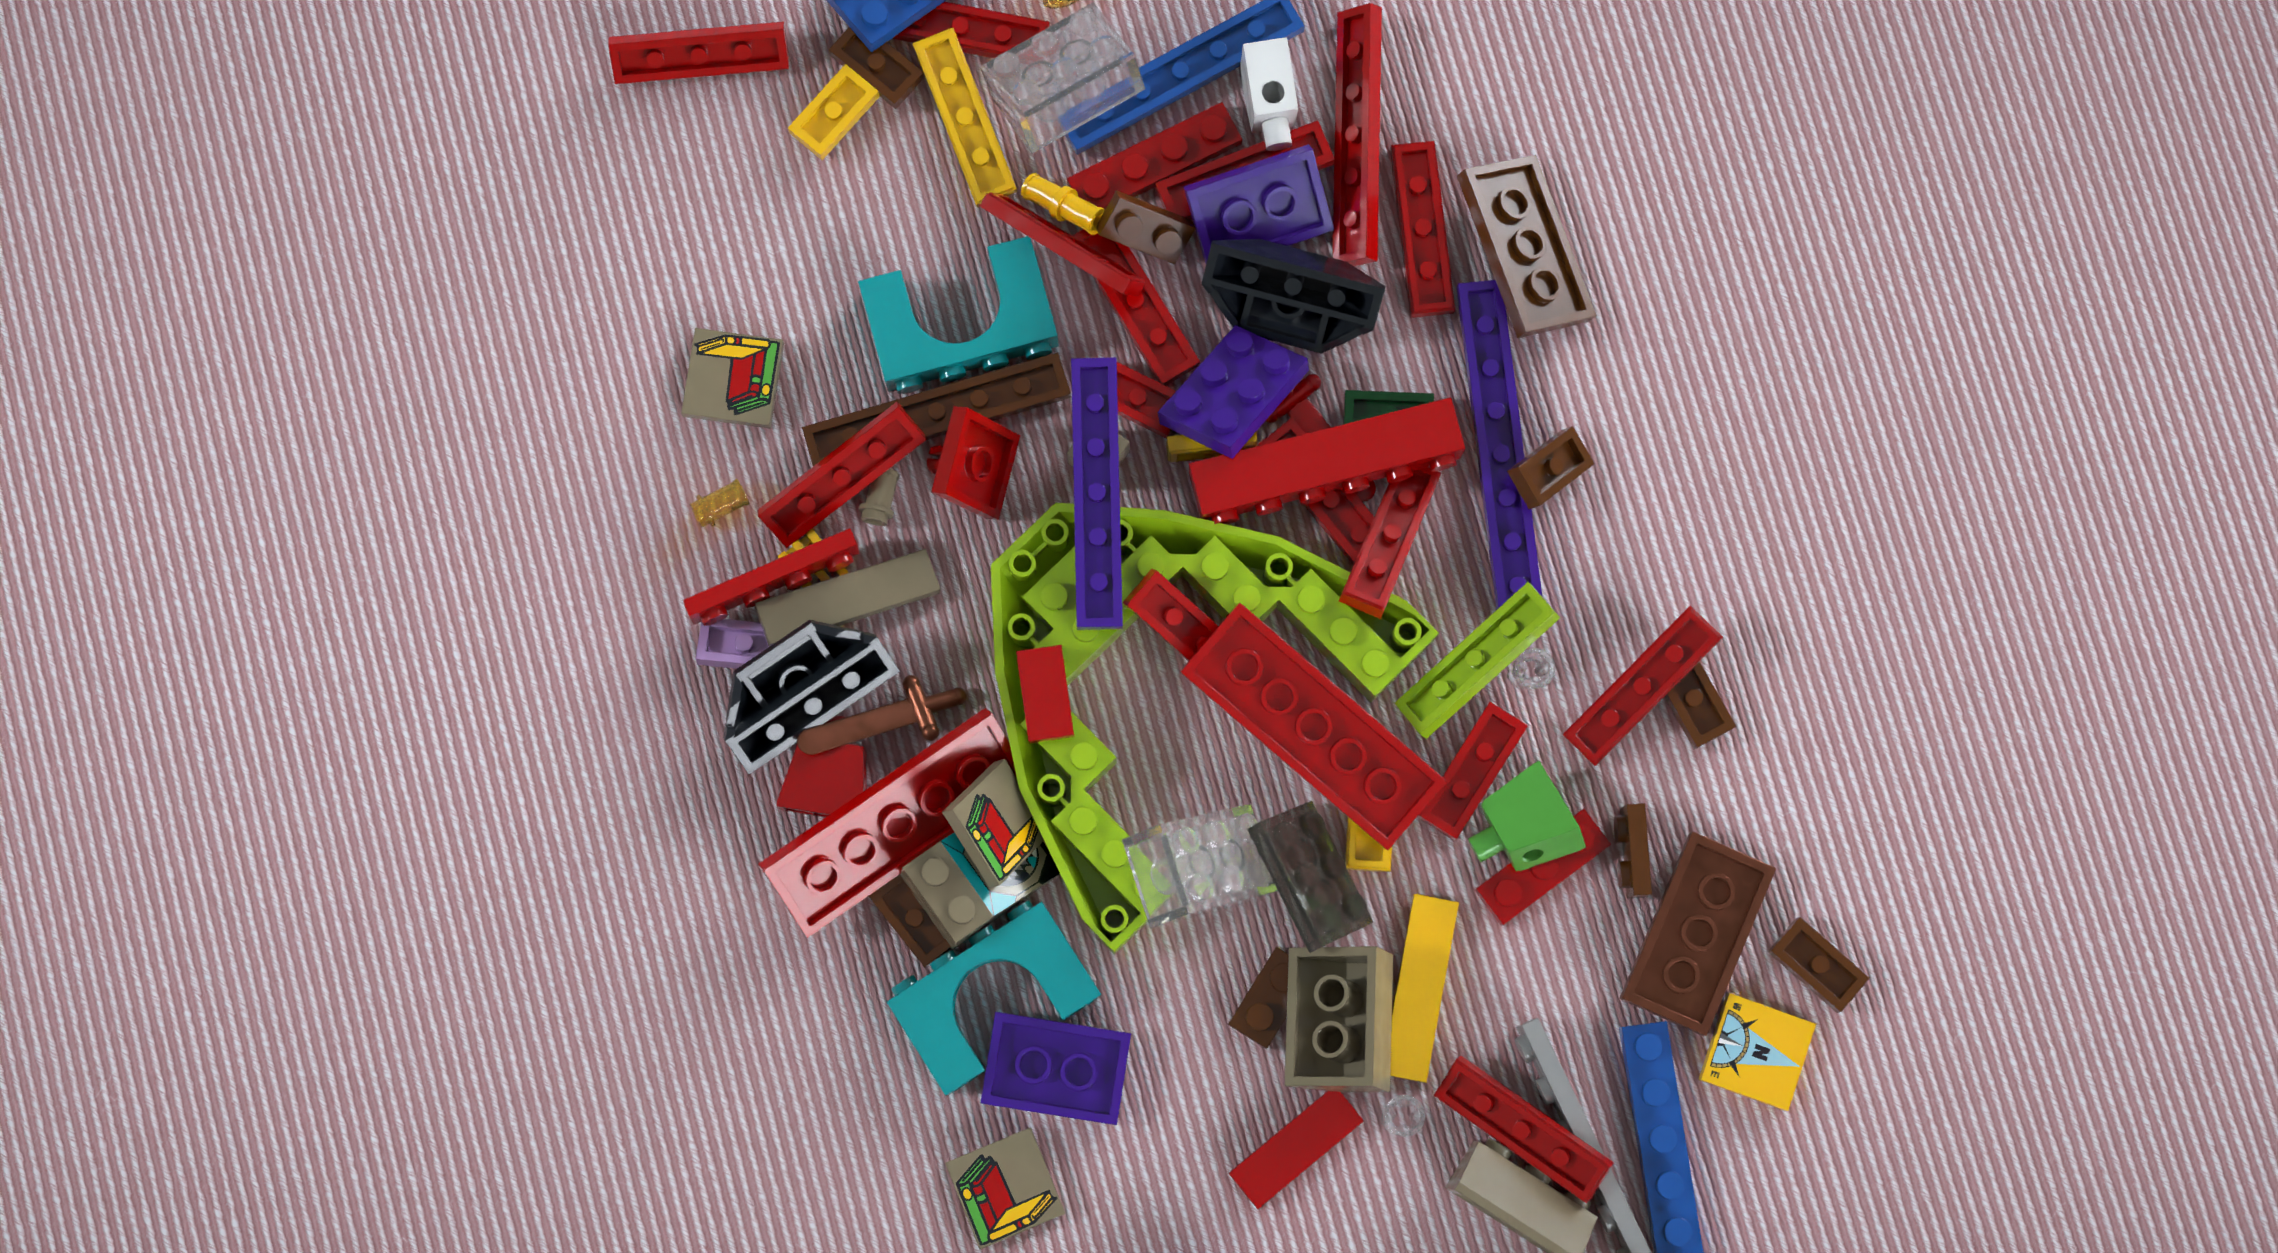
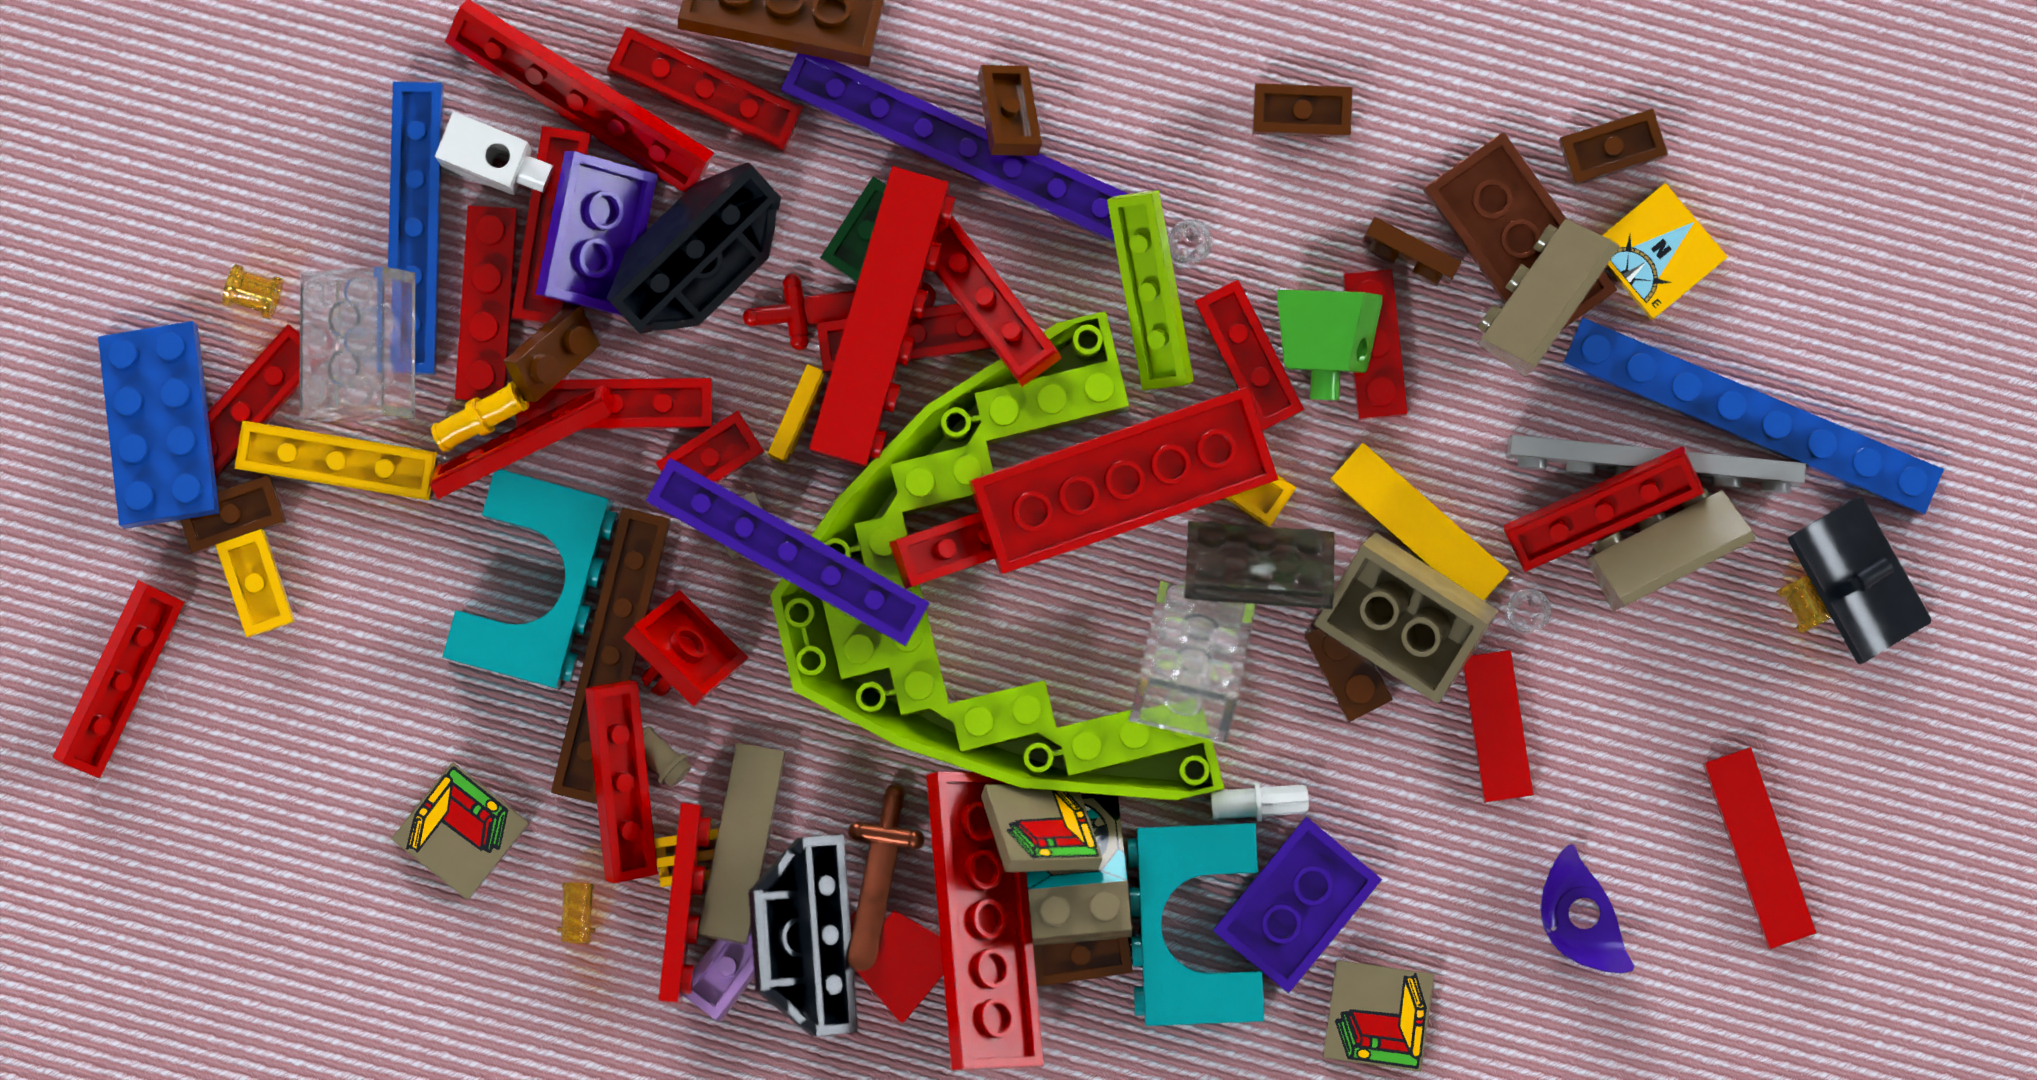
camera: 55 degrees left, 5 degrees up
(1045, 694) = (948, 711): red tile -> none
(1121, 989) = (1259, 802): none -> white axle
(1233, 391) = (761, 364): dark purple plate -> none
(1643, 685) = (1264, 150): red tile -> none
(1667, 977) = (1545, 294): none -> dark tan slope

